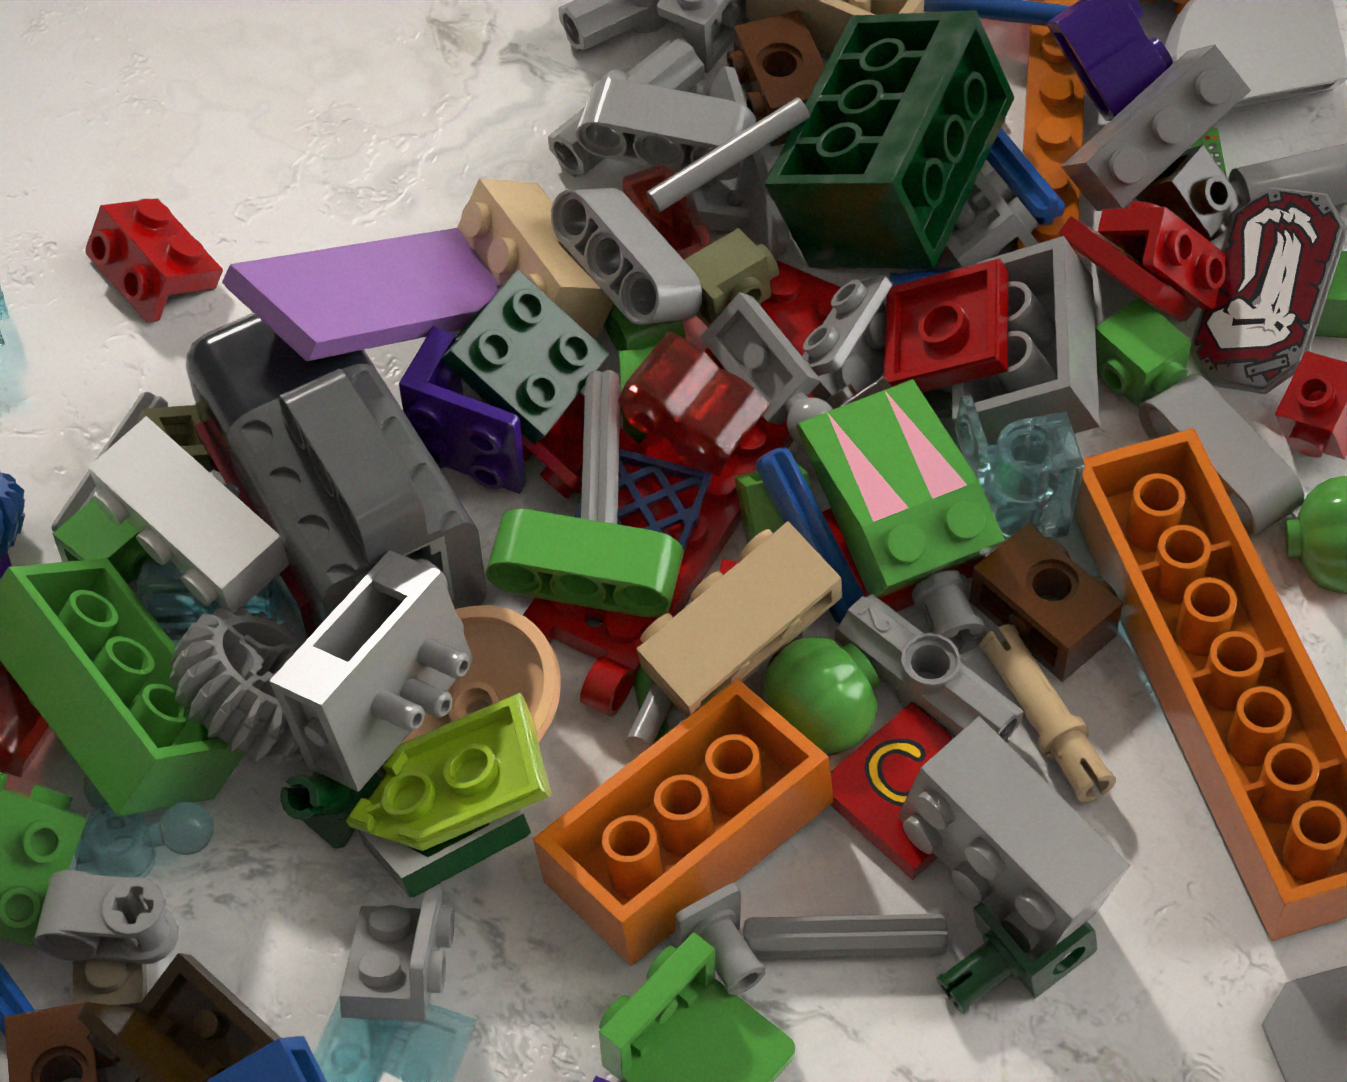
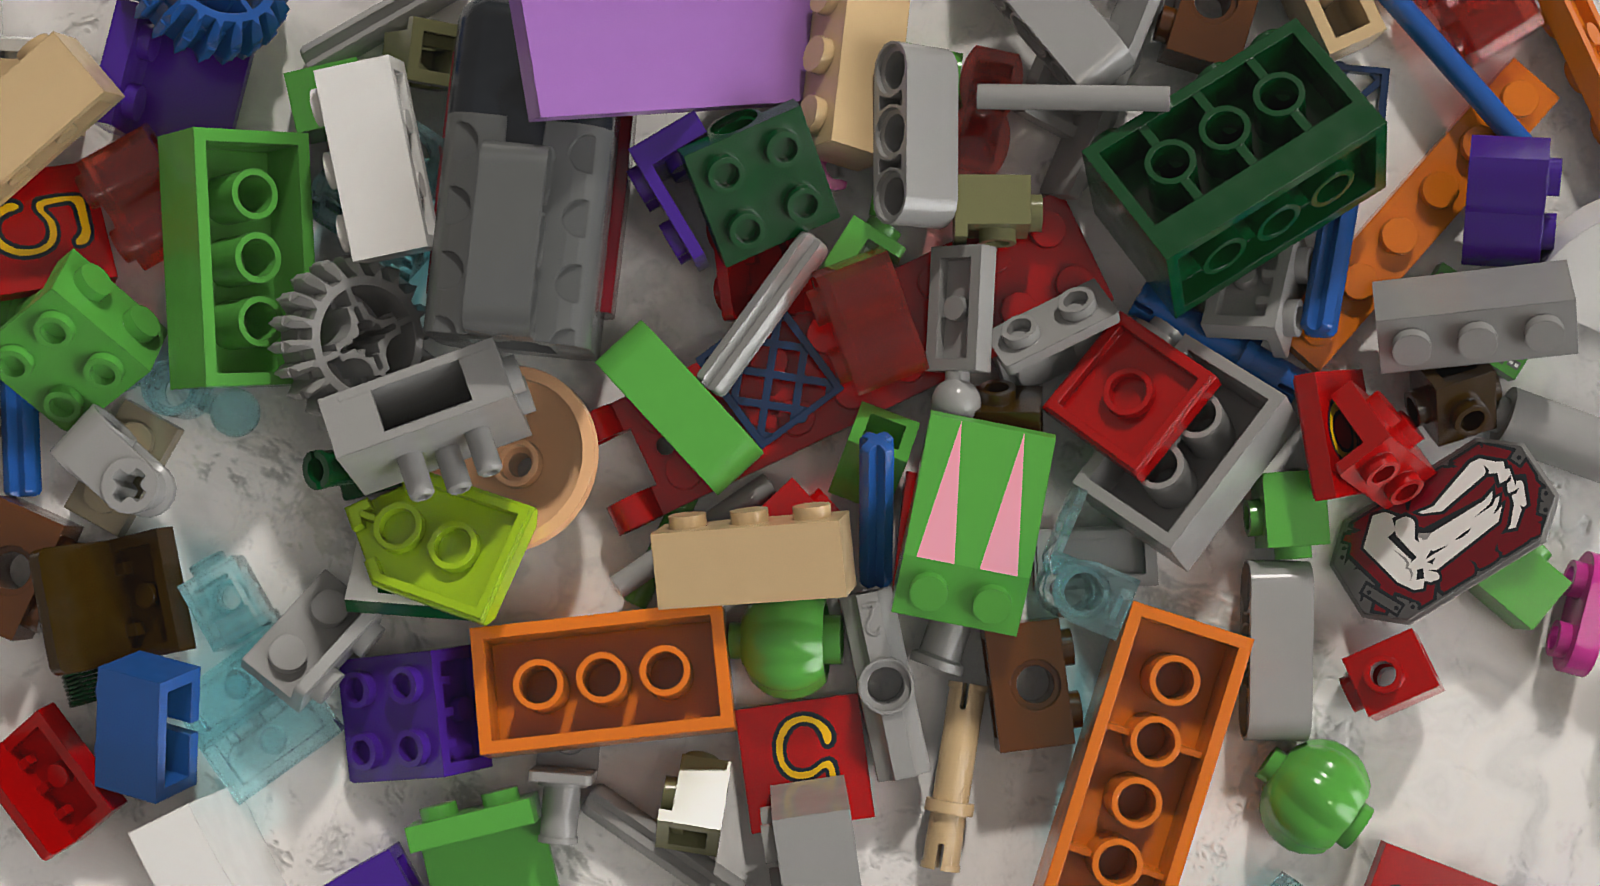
camera: 30 degrees right, 30 degrees up
(286, 960) = (204, 597): none -> clear light blue brick
(528, 971) = (410, 715): none -> dark purple bracket
(847, 866) = (694, 805): none -> brick

